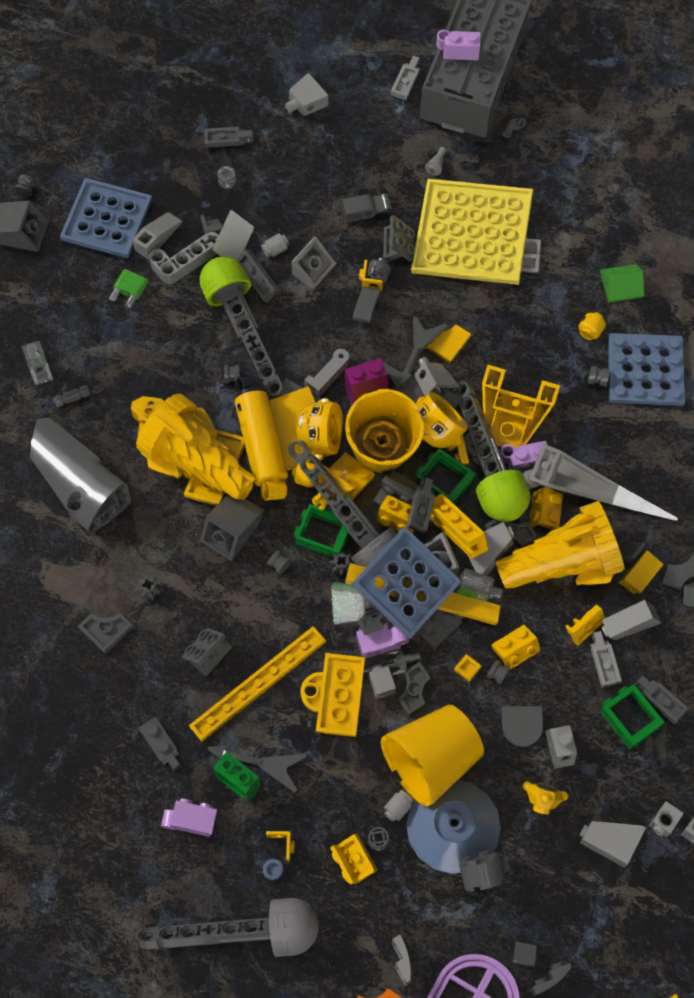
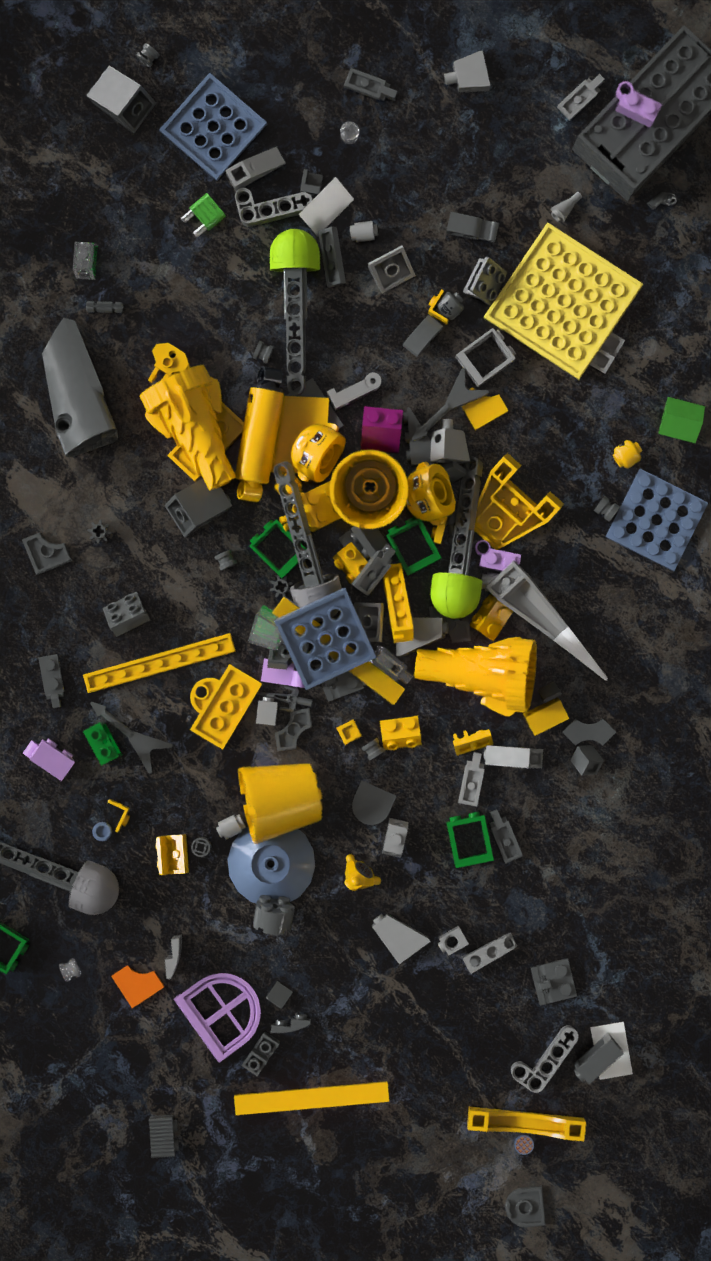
camera: 30 degrees right, 20 degrees up
(424, 315) = (471, 370): none -> light grey window

